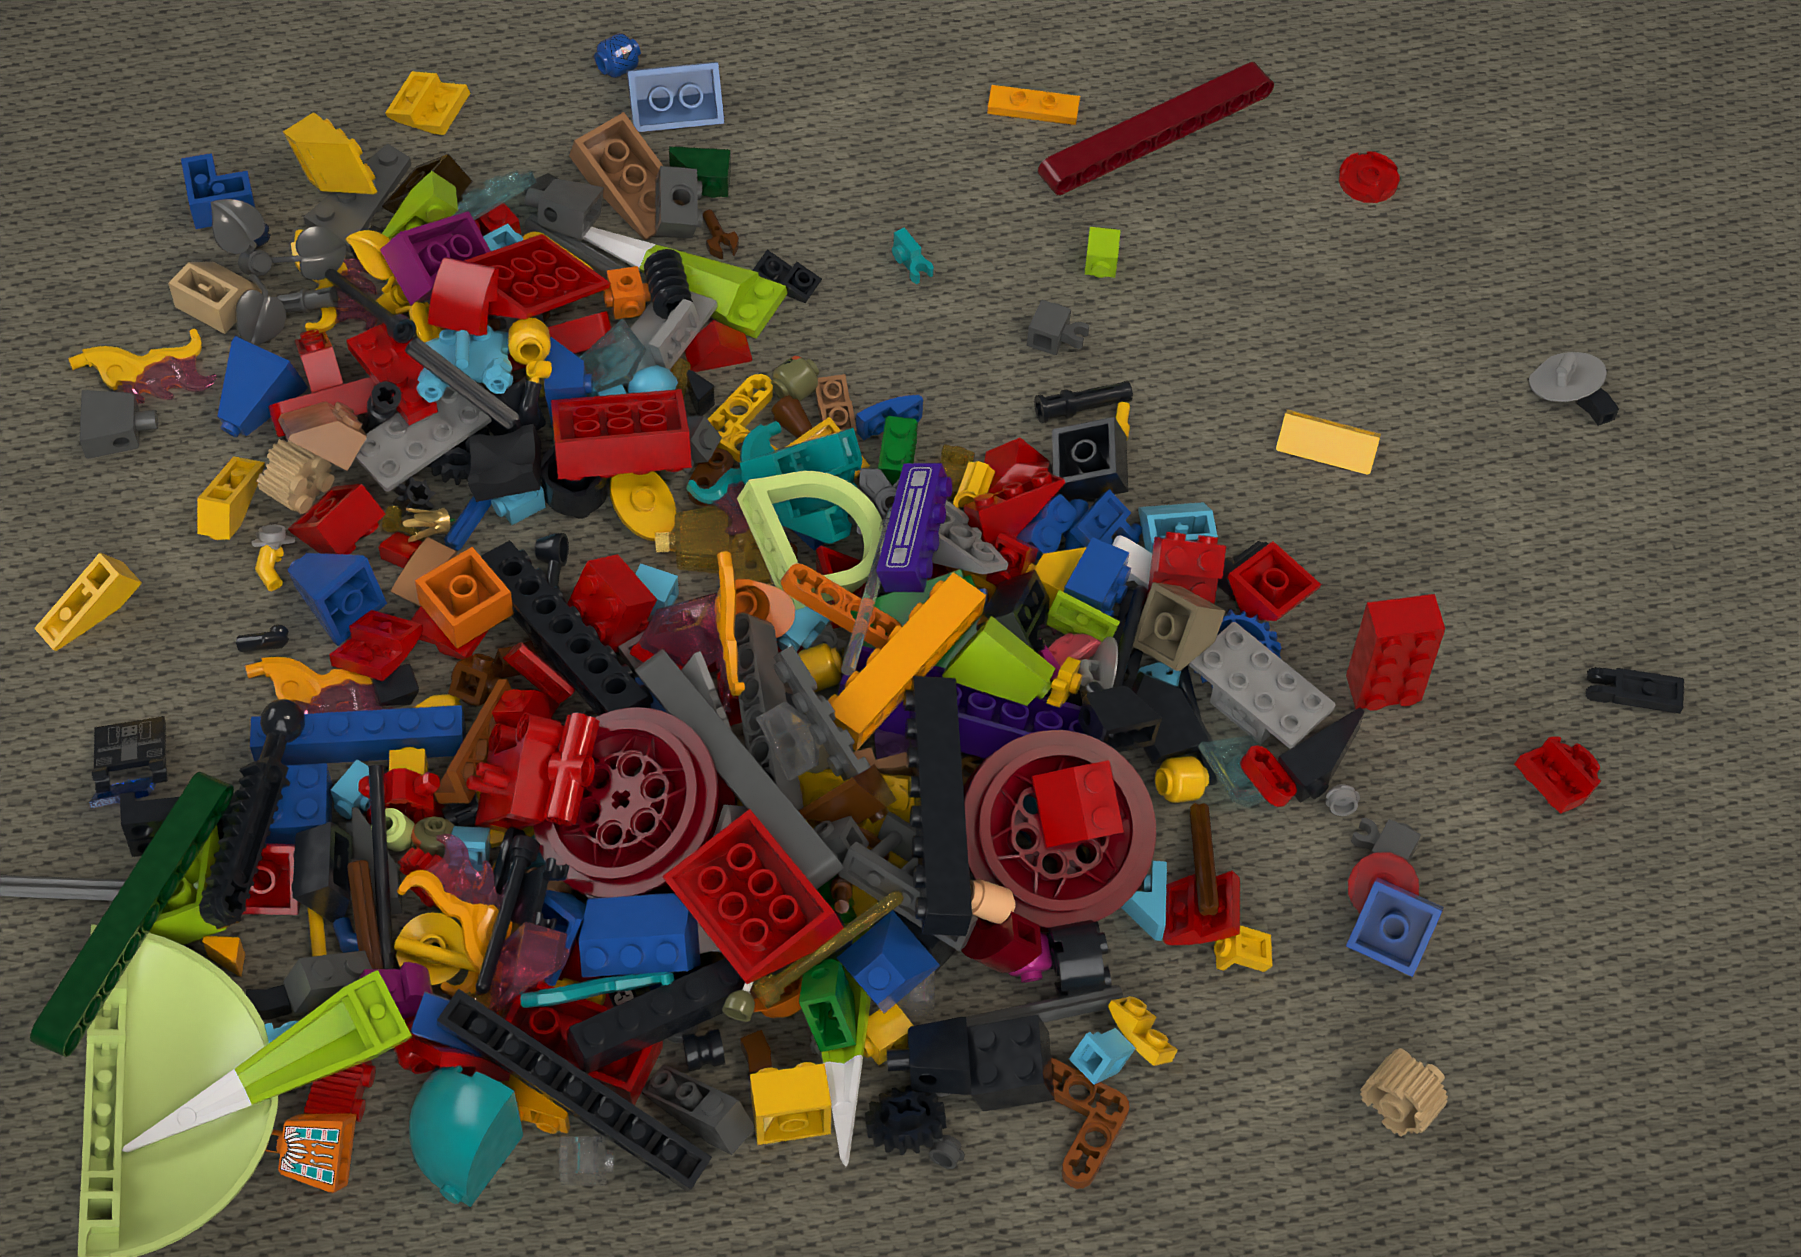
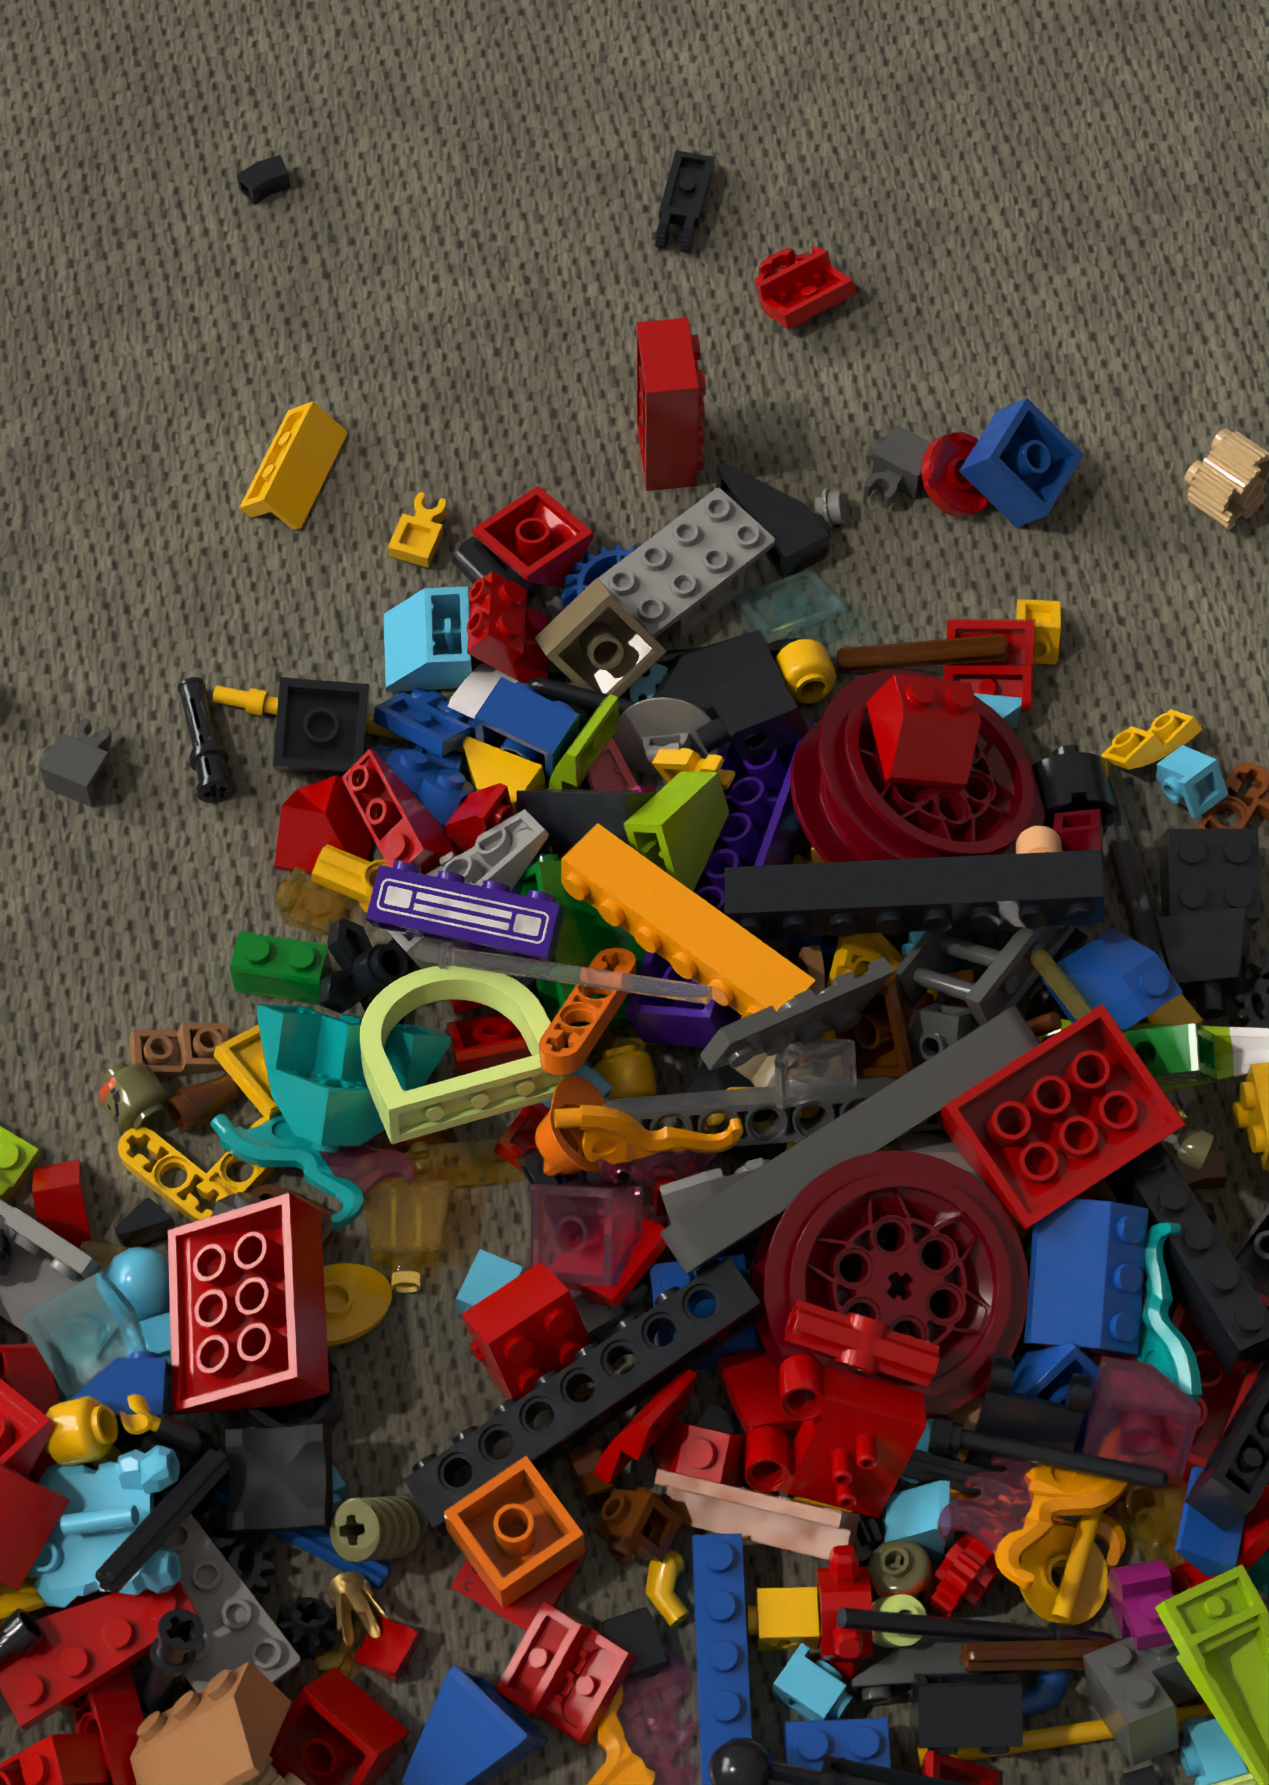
camera: 85 degrees left, 5 degrees up
(425, 559) = (437, 1610): medium nougat slope -> none
(474, 521) = (377, 1528): none -> olive piece
(554, 551) = (408, 1430): black bar -> none
(872, 419) = (211, 972): blue slope -> none
(1268, 776) = (805, 576): red beam -> none
(1276, 520) = (418, 535): none -> yellow plate
(1568, 376) = (221, 201): light grey shield -> none

